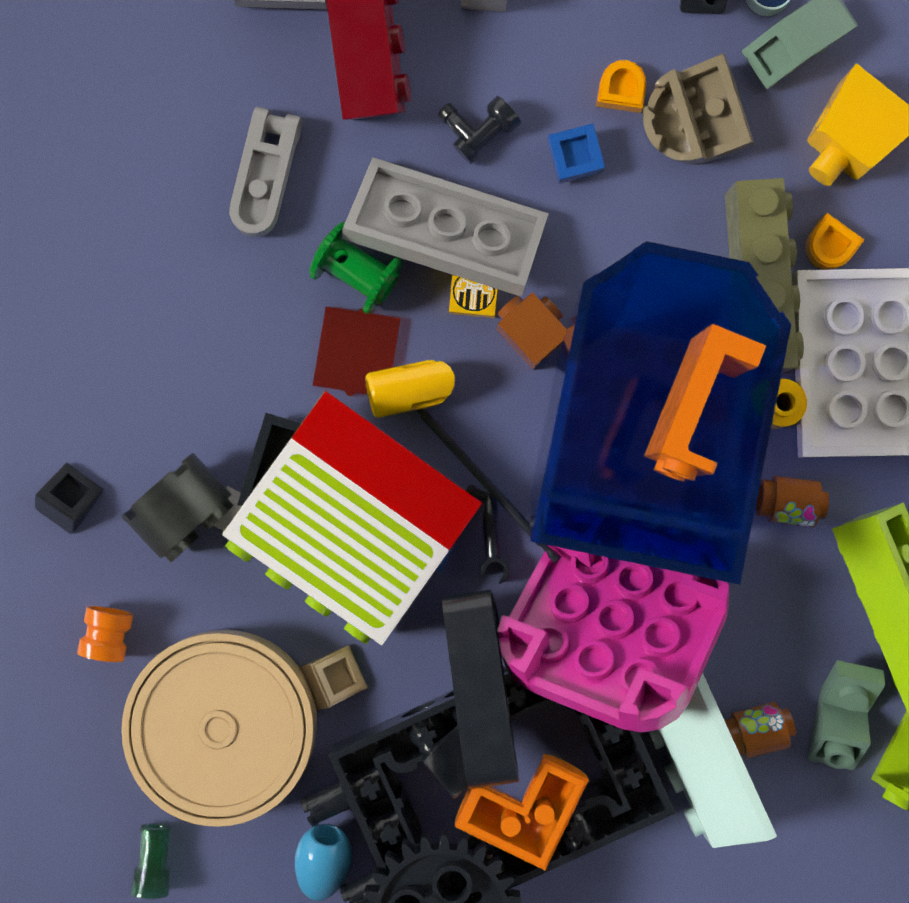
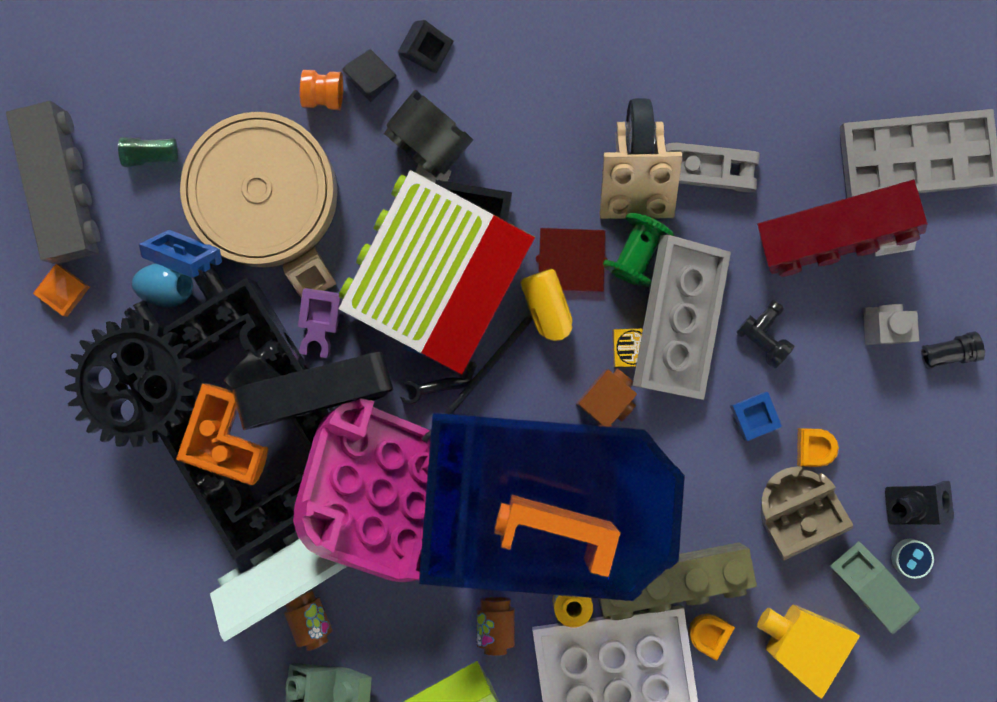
camera: 75 degrees right, 0 degrees up
(94, 572) = (369, 74): none -> black slope
(261, 252) = (634, 176): none -> tan plate
(286, 835) = (180, 253): none -> blue tile
(386, 669) = (320, 315): none -> medium lavender plate

